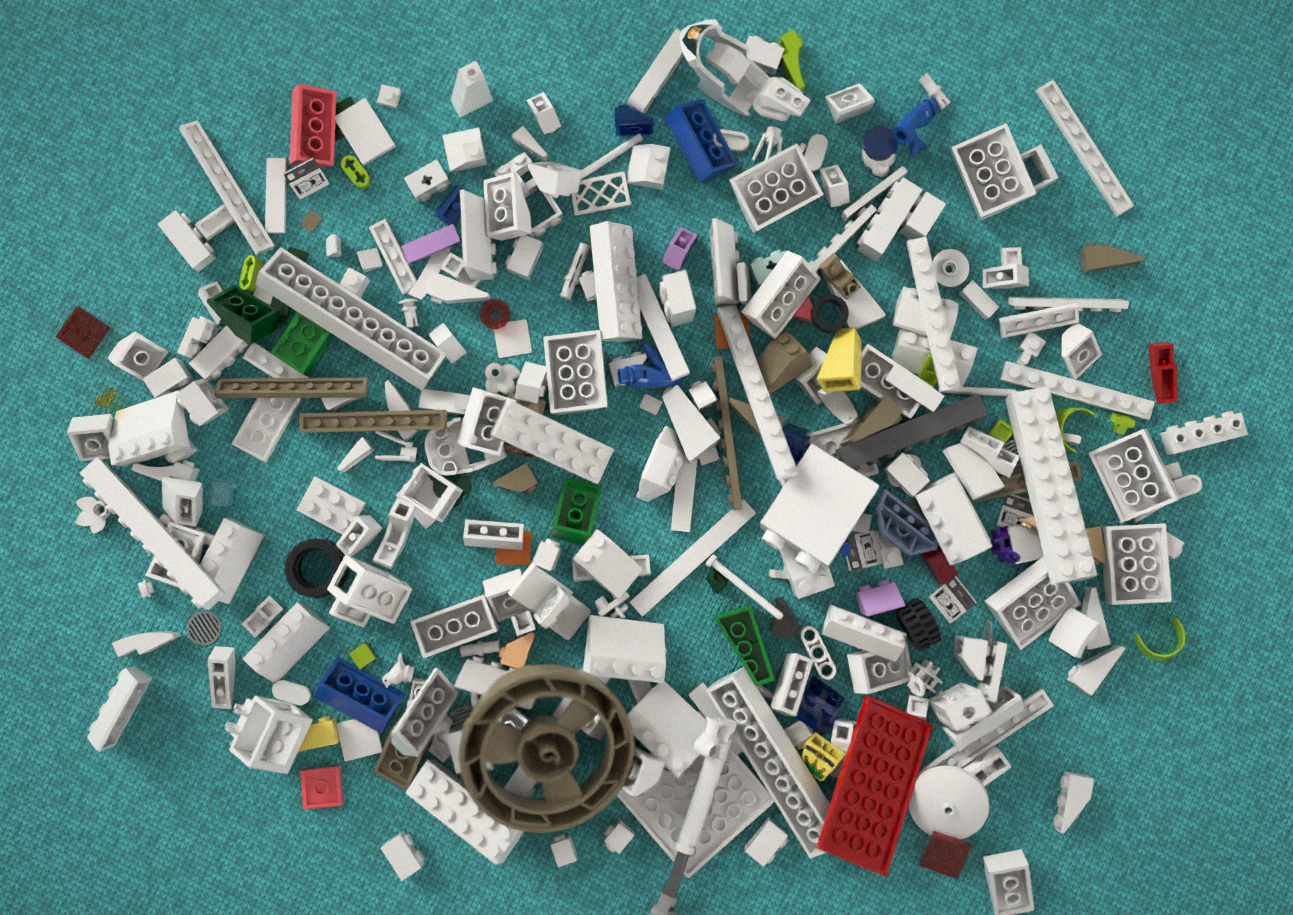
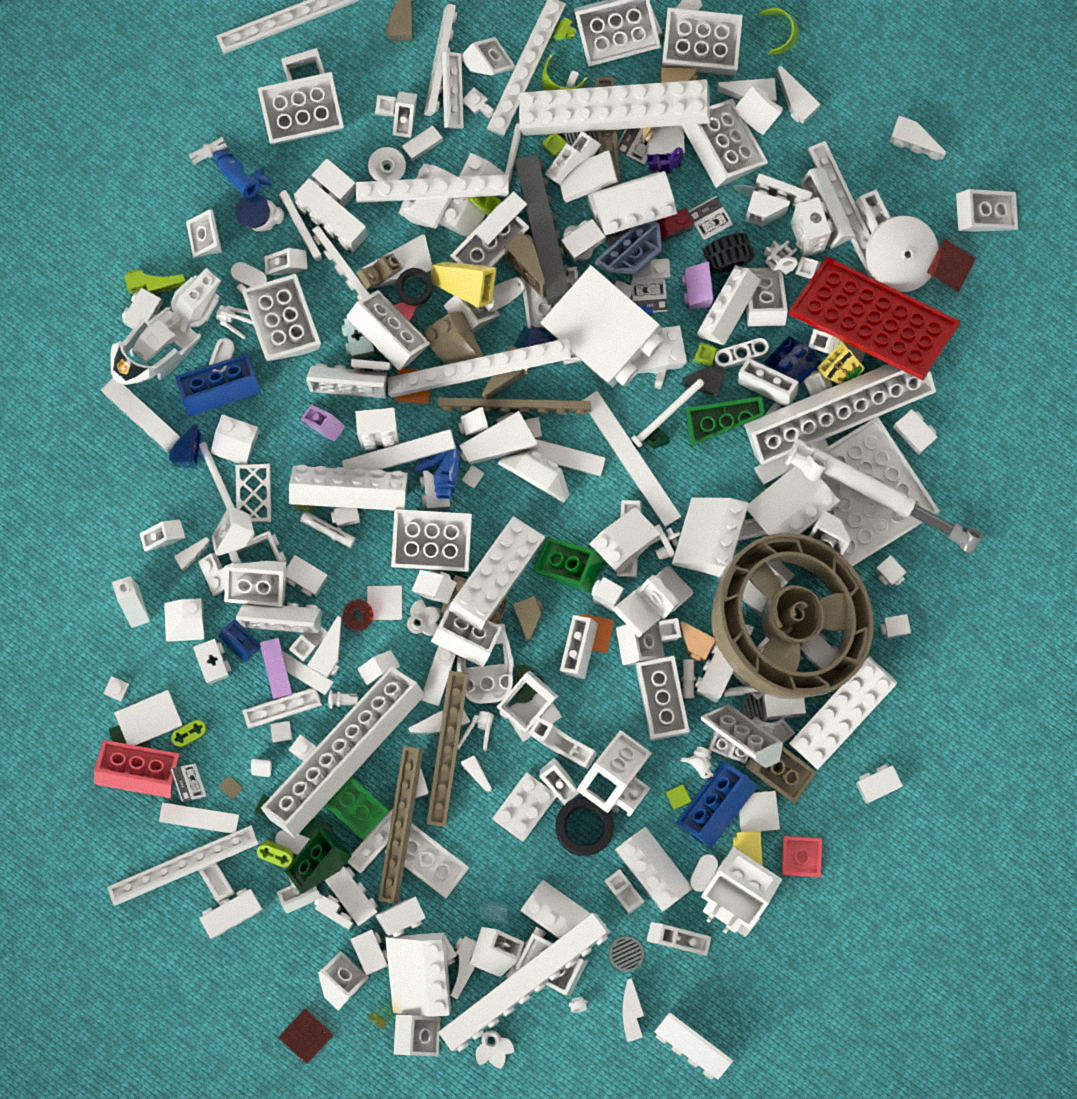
camera: 85 degrees left, 5 degrees down
(811, 616) = (705, 354): none -> lime tile

